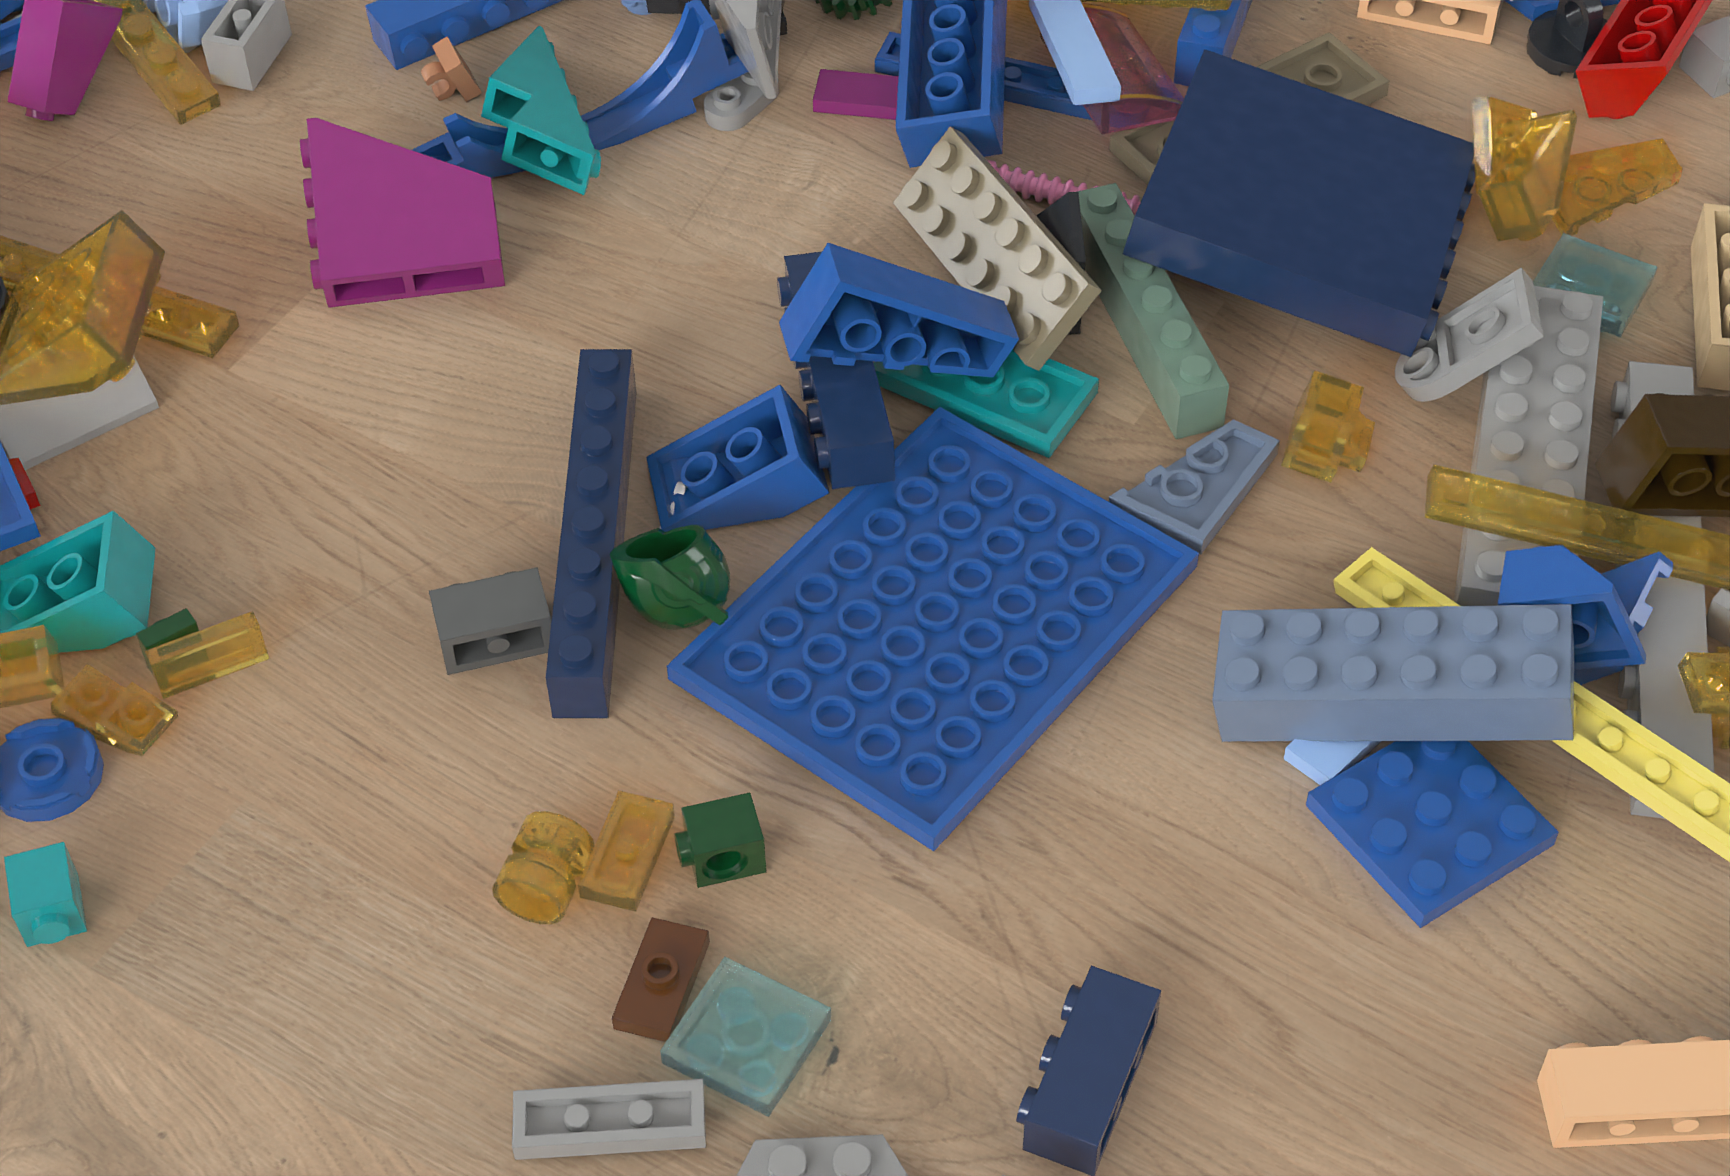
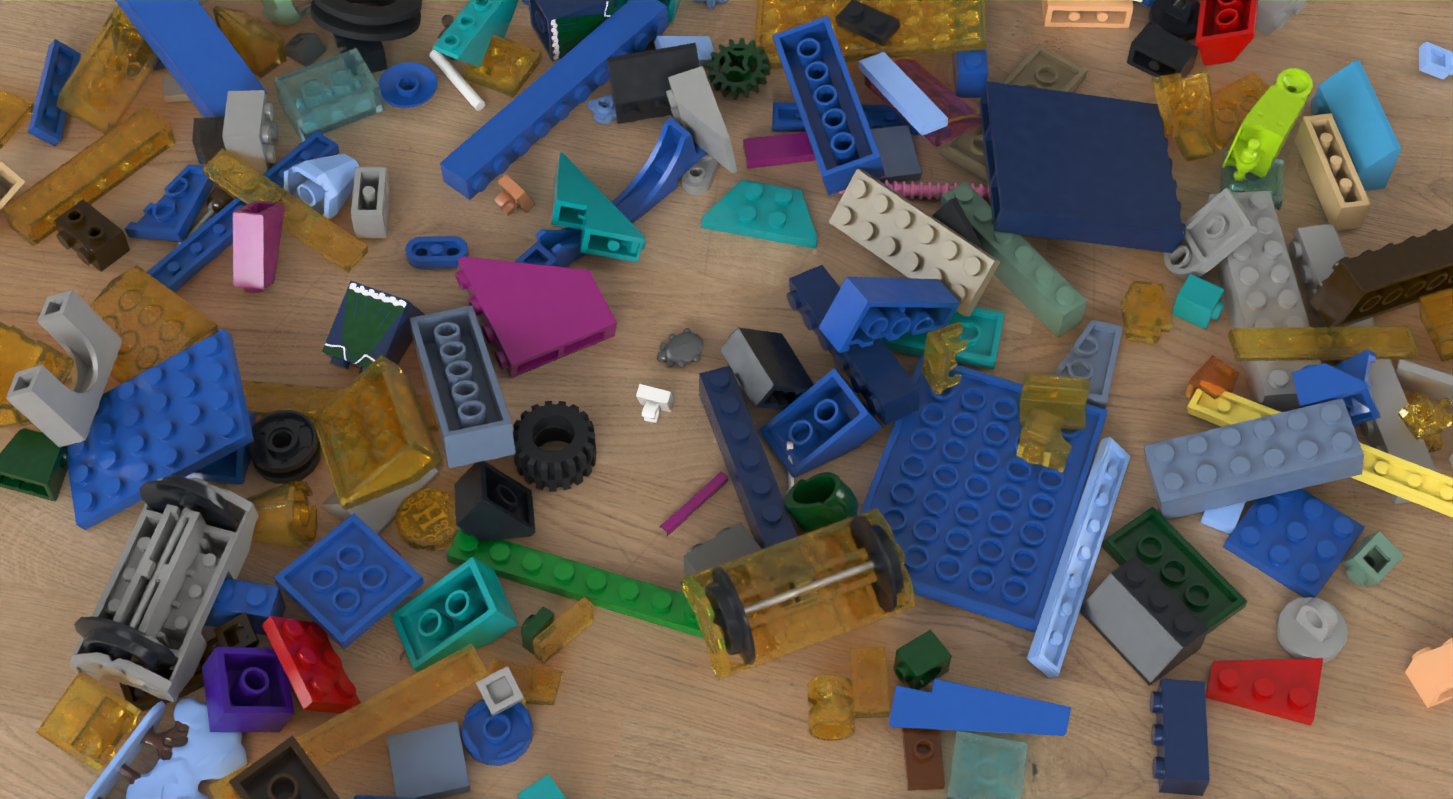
camera: 20 degrees left, 5 degrees up
(63, 709) = (500, 691): none -> light grey plate
(108, 461) = (427, 519): none -> clear yellow tile
(164, 189) = (368, 327): none -> slope
(196, 457) = (493, 504): none -> black slope
(222, 287) = (462, 387): none -> sand blue brick
(286, 604) = (578, 581): none -> green plate
(287, 116) = (436, 252): none -> blue plate
(327, 401) = (559, 467): none -> black tyre
(473, 544) = (694, 503): none -> magenta piece
(506, 380) = (654, 401): none -> white tile
(508, 693) = (837, 573): none -> clear yellow piece
(588, 322) = (681, 349): none -> dark grey piece
(684, 364) = (766, 367): none -> black brick
(767, 932) = (975, 709): none -> blue wedge
(801, 172) = (763, 213): none -> teal wing
(957, 406) = (941, 357): none -> clear yellow hinge
(1035, 133) = (897, 154): none -> sand blue tile
(1048, 758) = (1078, 558): none -> light blue tile
(1062, 563) = (1043, 442): none -> clear yellow brick
(1110, 515) = (1055, 395): none -> clear yellow panel
(1112, 876) = (1144, 620): none -> slope
(1202, 824) = (1177, 566): none -> dark green tile
(1283, 1035) = (1268, 686): none -> red wing
(1392, 545) = (1213, 379): none -> clear orange panel
(1397, 968) = (1311, 629): none -> light grey tile
(1421, 433) = (1199, 302): none -> teal brick
(1521, 76) = (1161, 53): none -> black brick
(1558, 870) = (1381, 558): none -> sand green brick
(1639, 202) = (1269, 124): none -> lime piece

